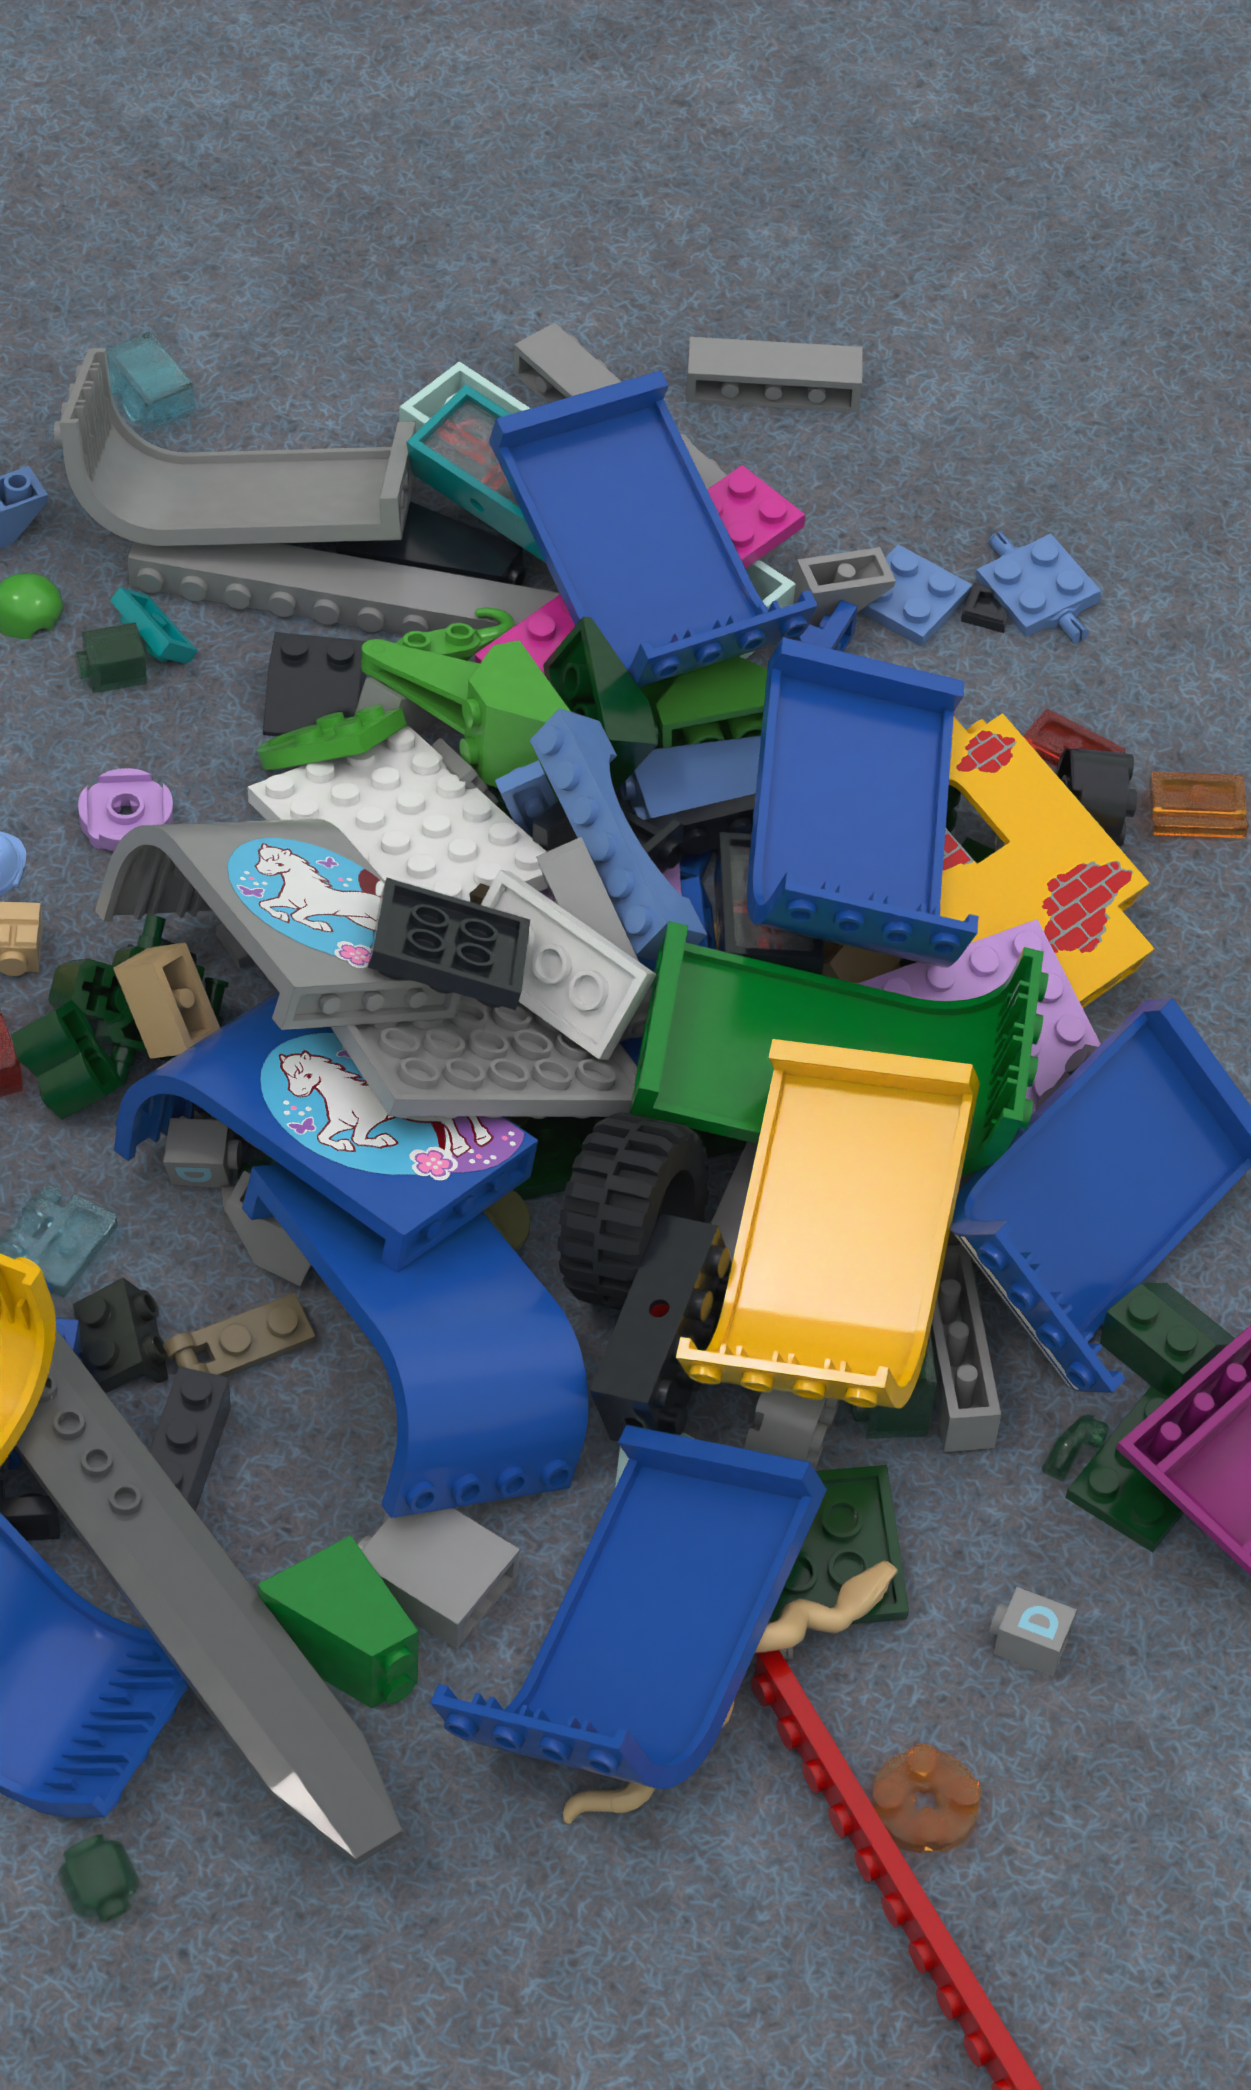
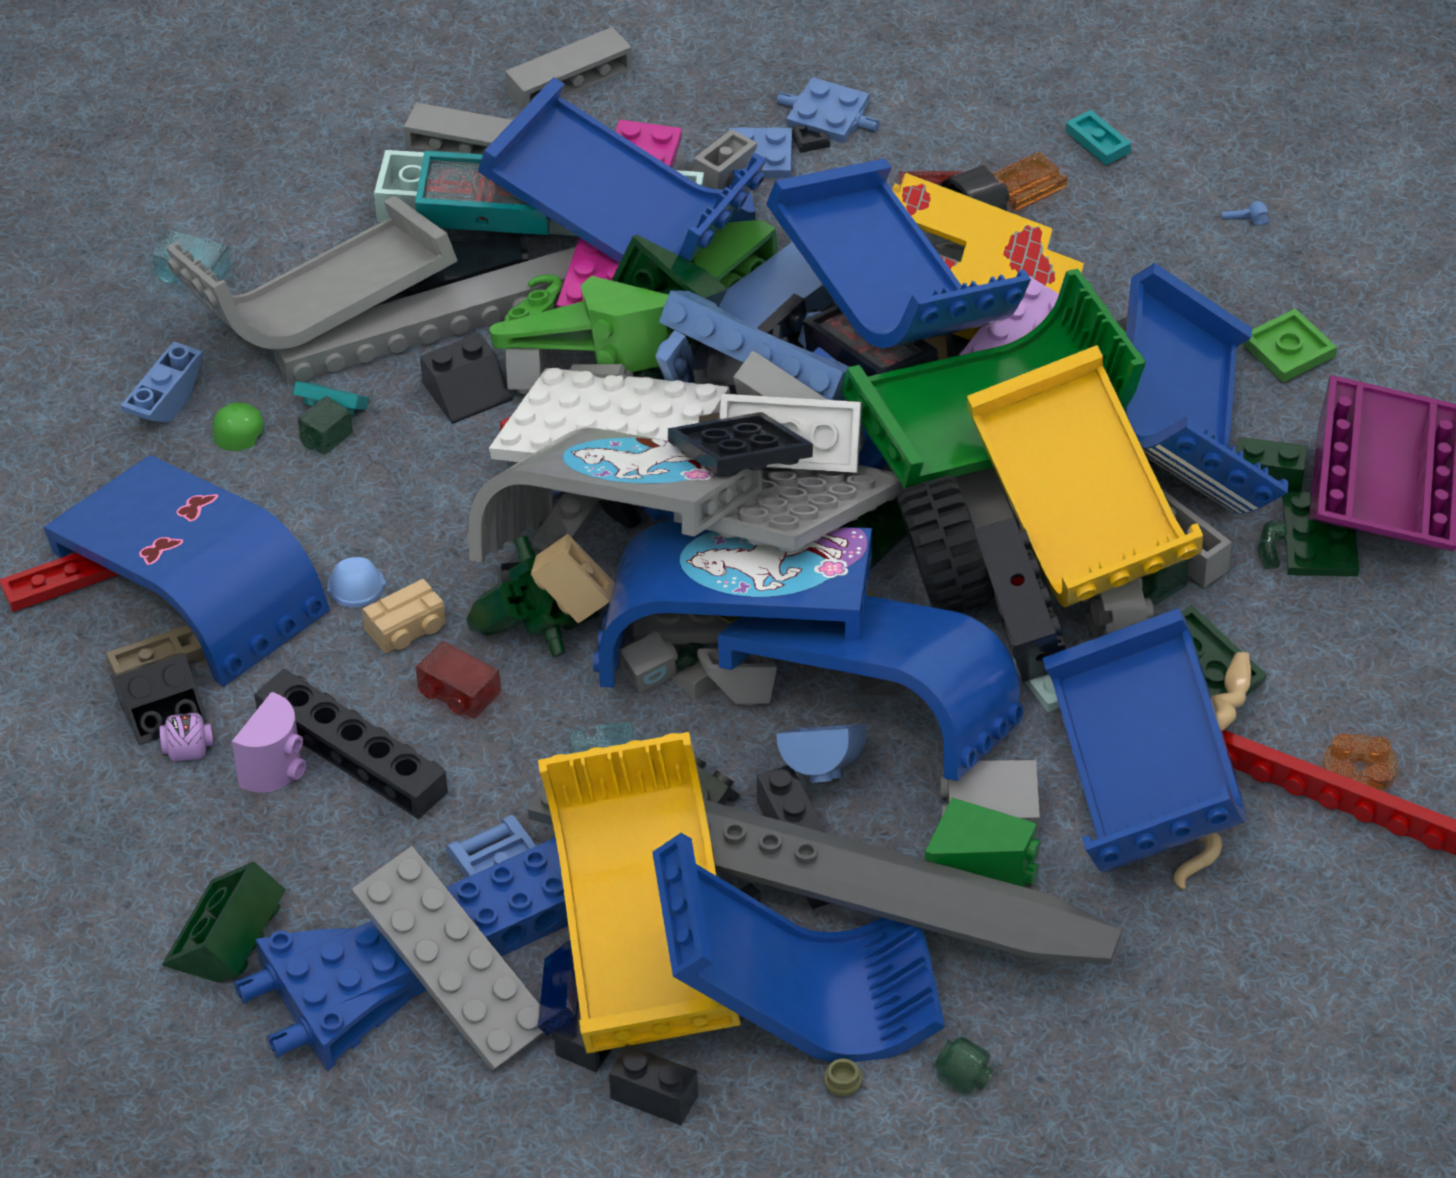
camera: 30 degrees left, 5 degrees down
(66, 1060) = (526, 653): dark green brick -> none
(116, 788) = (417, 521): lavender plate -> none
(244, 1338) = (762, 750): dark tan plate -> none
(282, 1379) = (822, 750): none -> medium blue brick
(331, 737) = (509, 398): bright green plate -> none
(1032, 1630) = (1339, 646): light grey brick -> none

